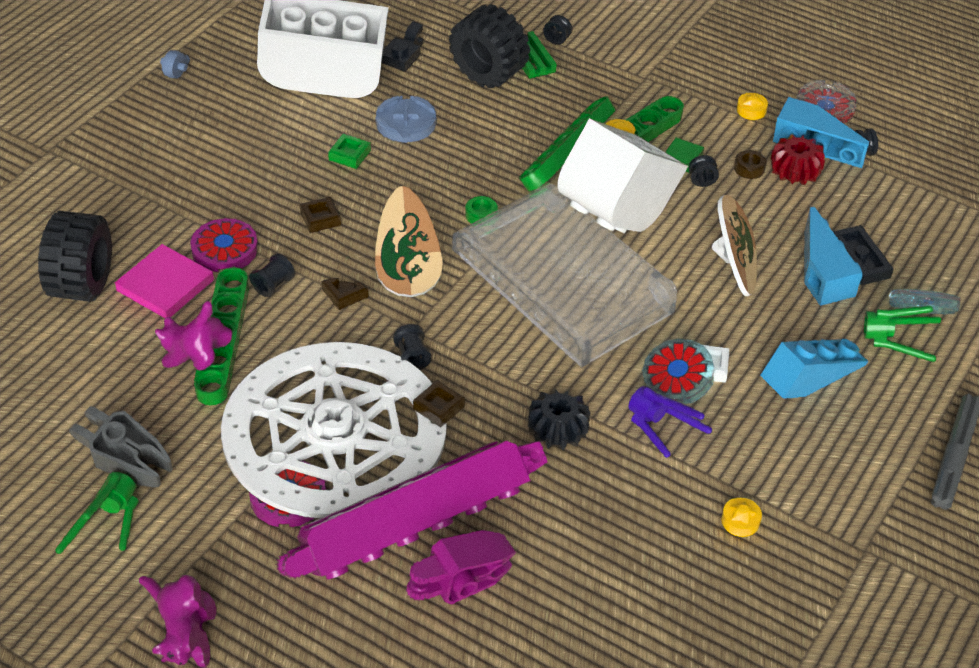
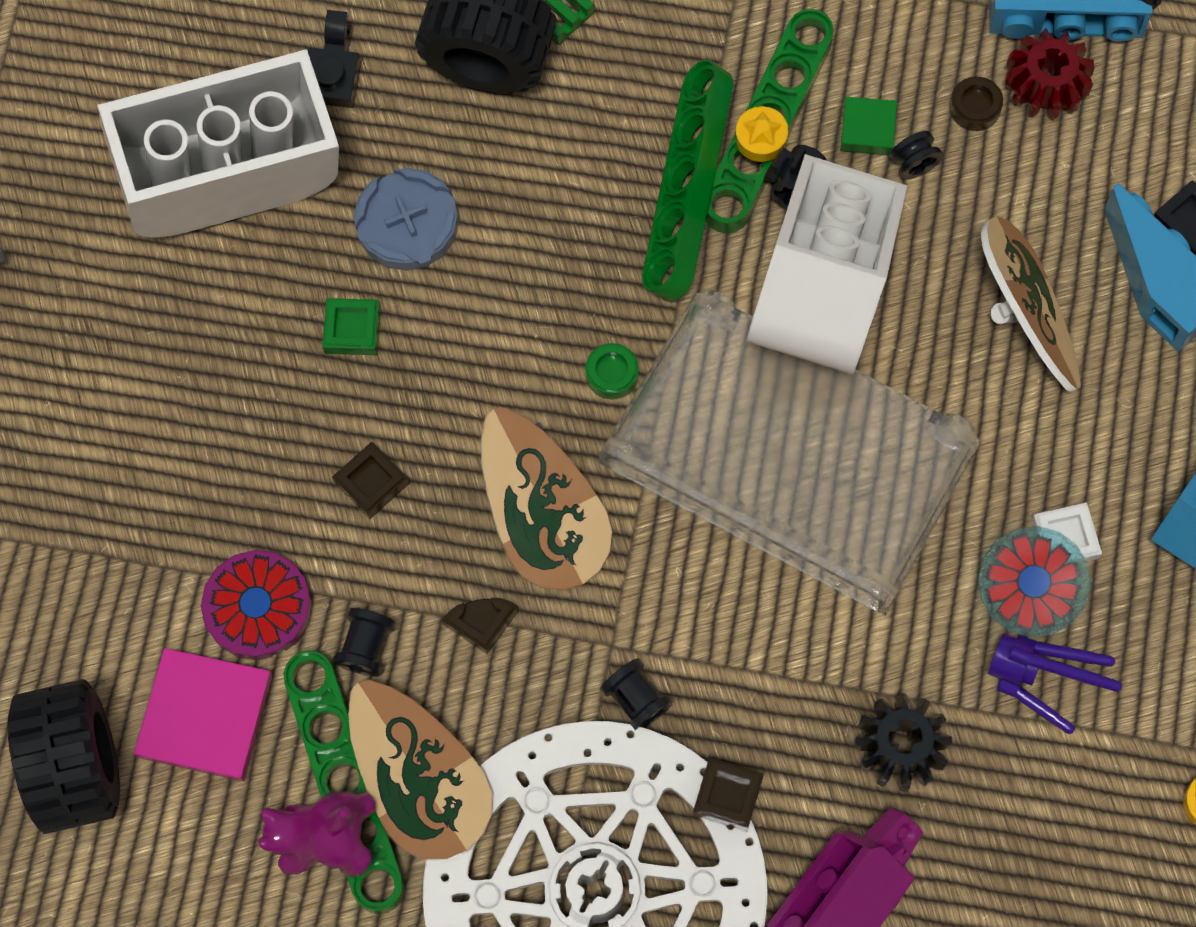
camera: 15 degrees left, 25 degrees up
(264, 337) = (419, 774): none -> shield

